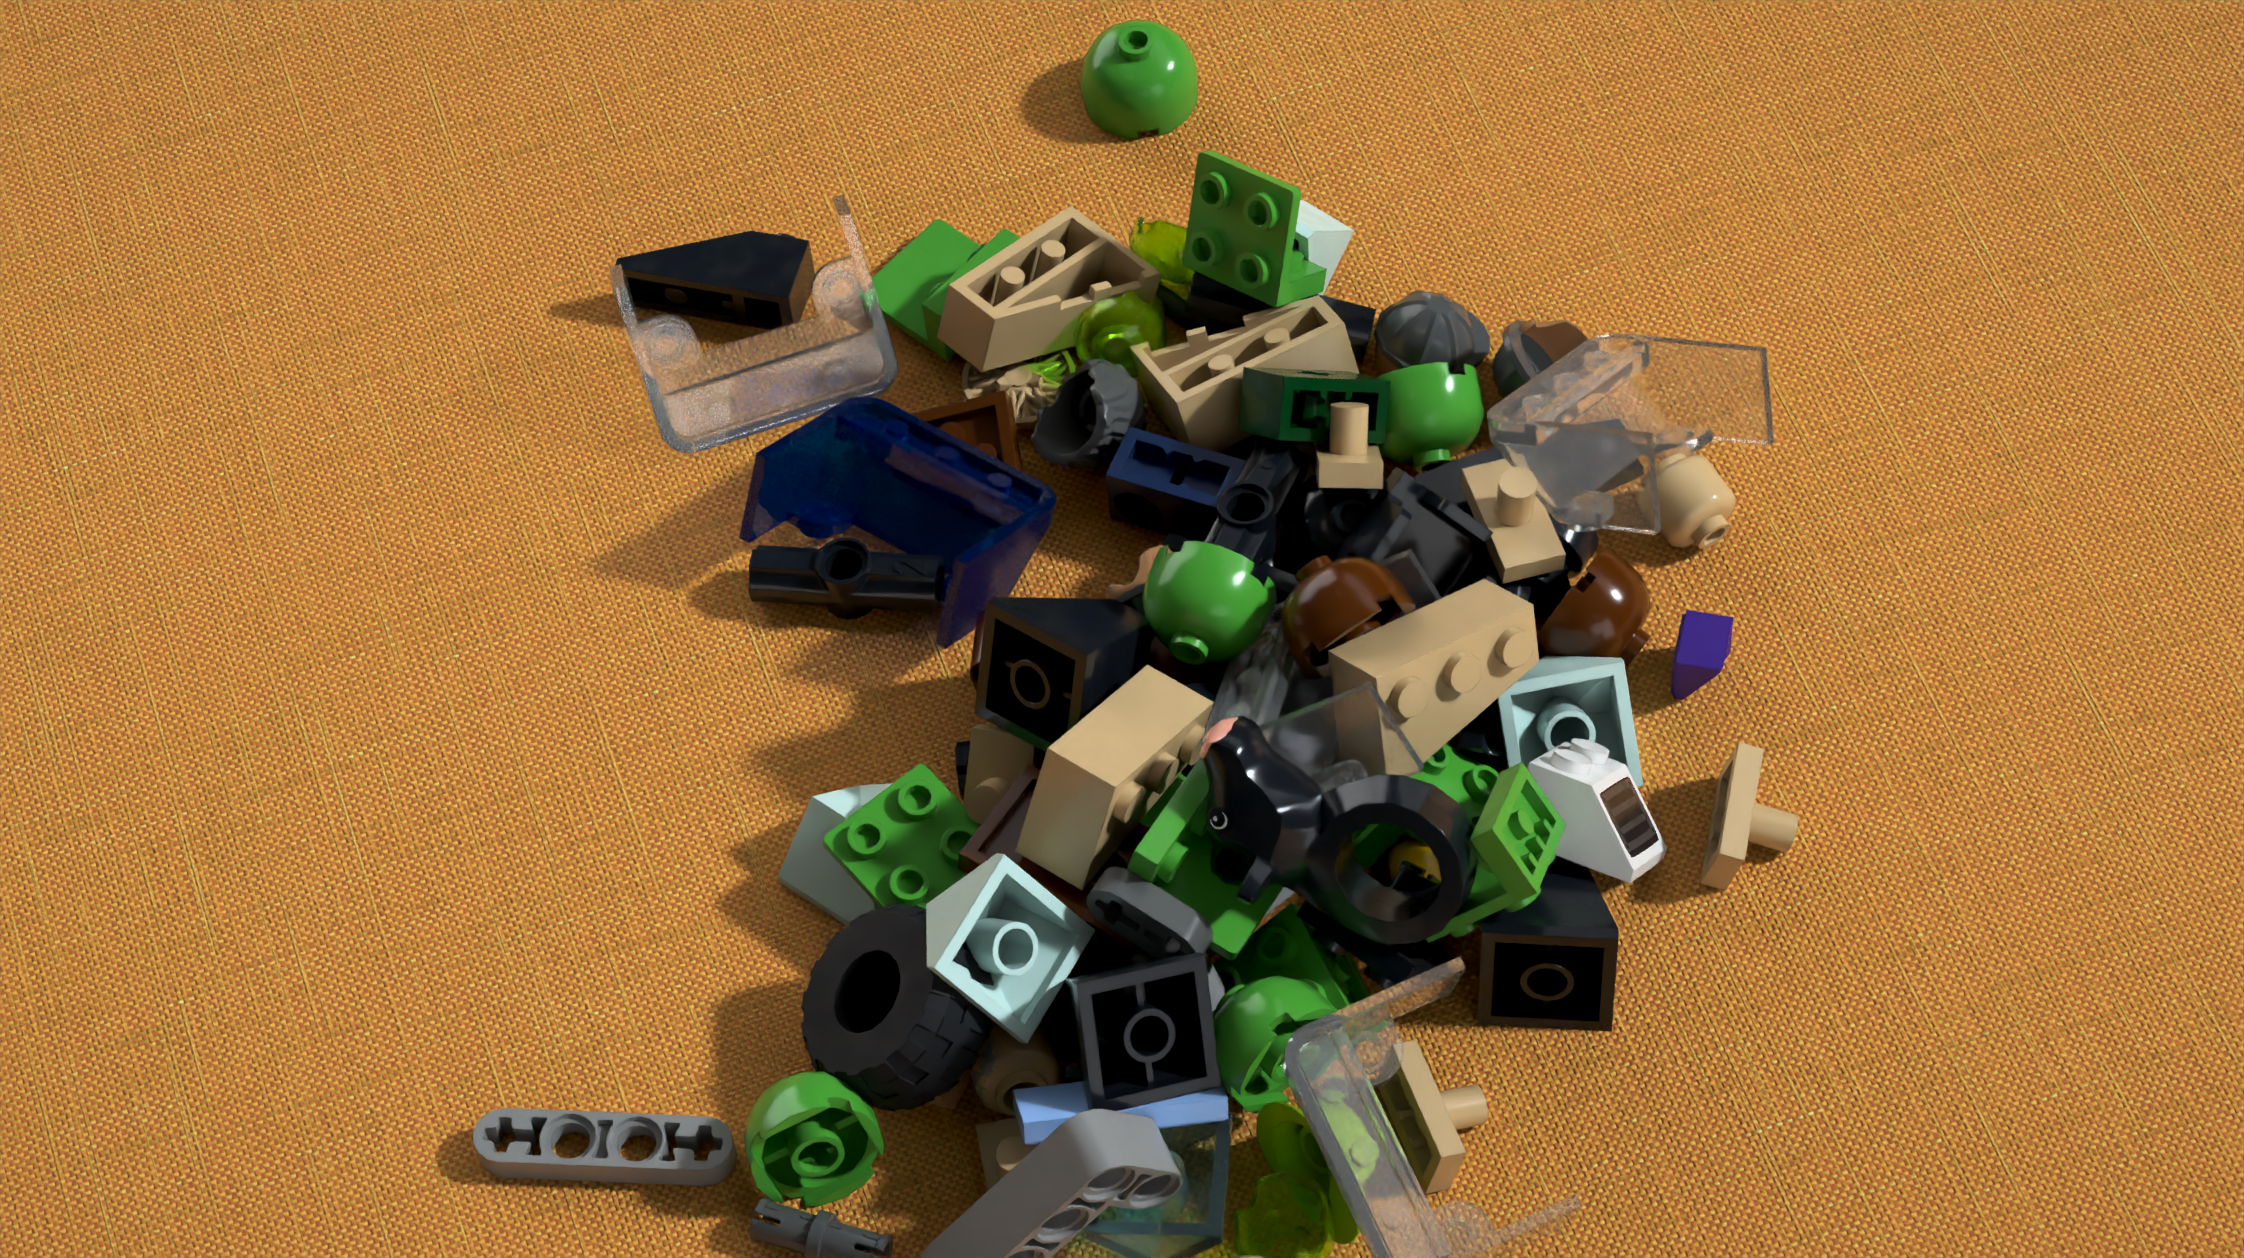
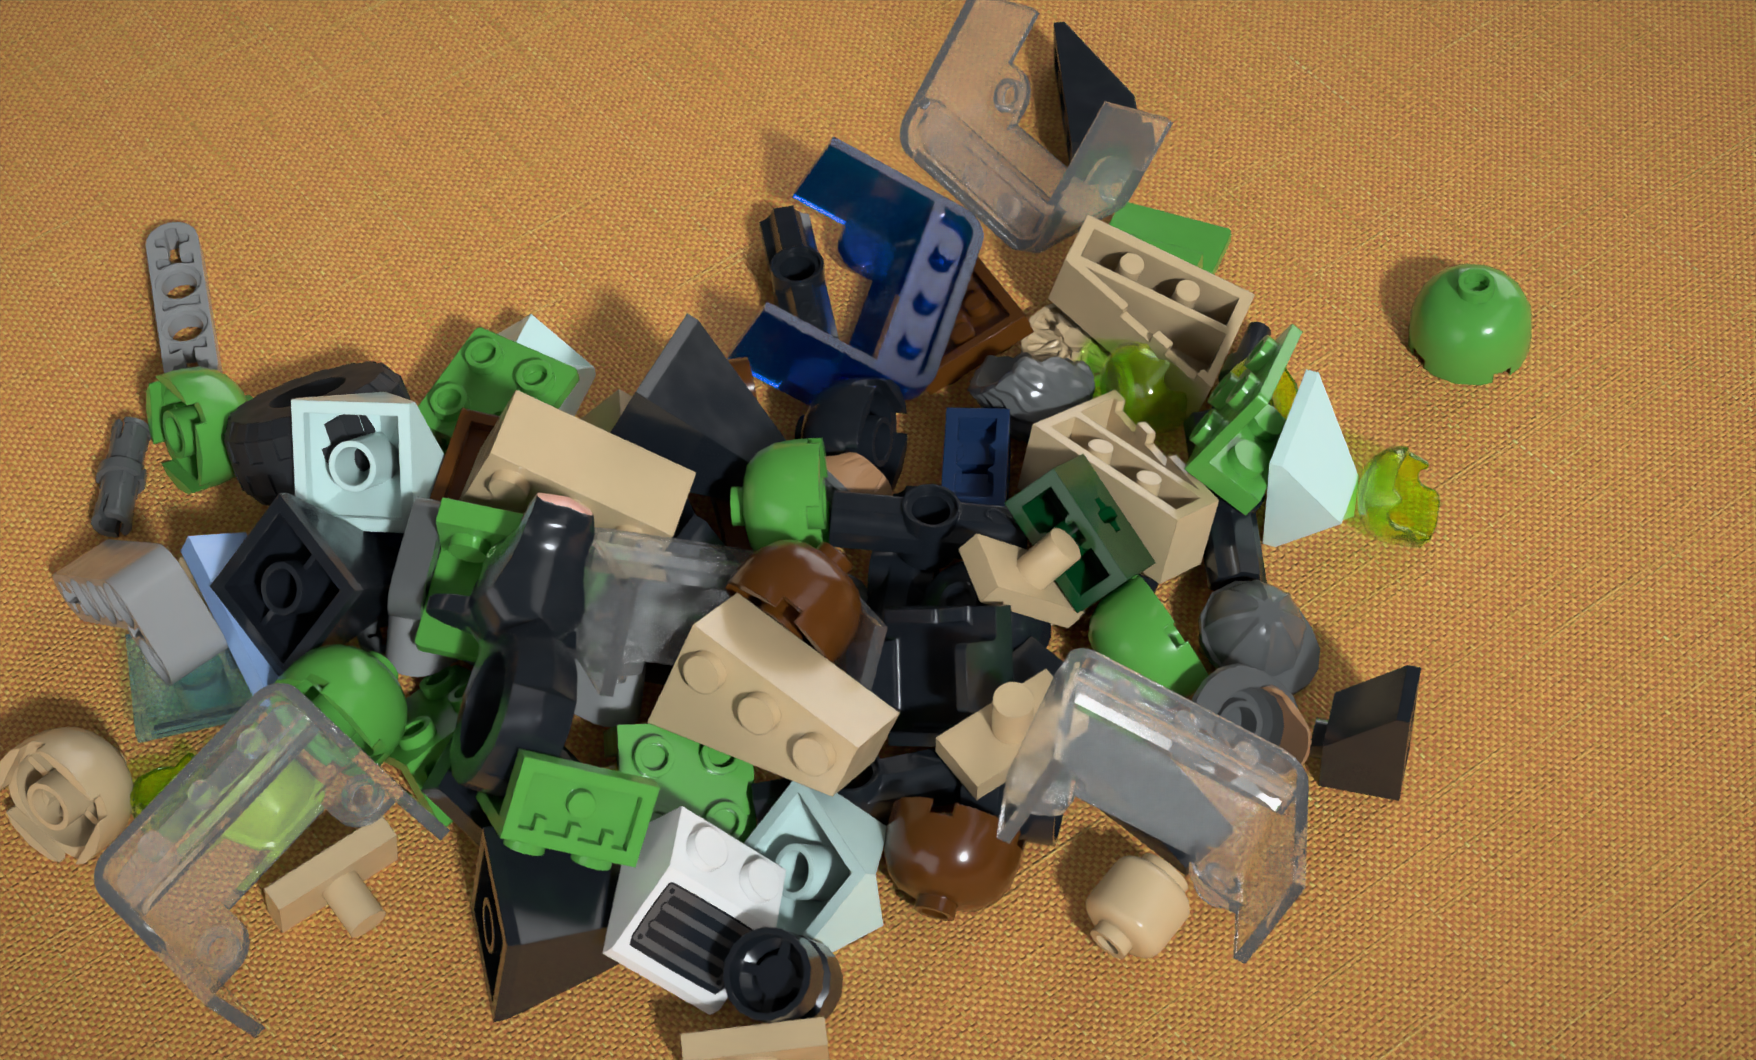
camera: 70 degrees right, 5 degrees down
(1077, 558) = (859, 419): none -> black cylinder
(1328, 188) = (1394, 501): none -> clear neon green hair
(1585, 272) = (1368, 735): none -> black slope
(1684, 766) = (782, 976): none -> black wheel
(1699, 651) = (949, 964): dark purple slope -> none

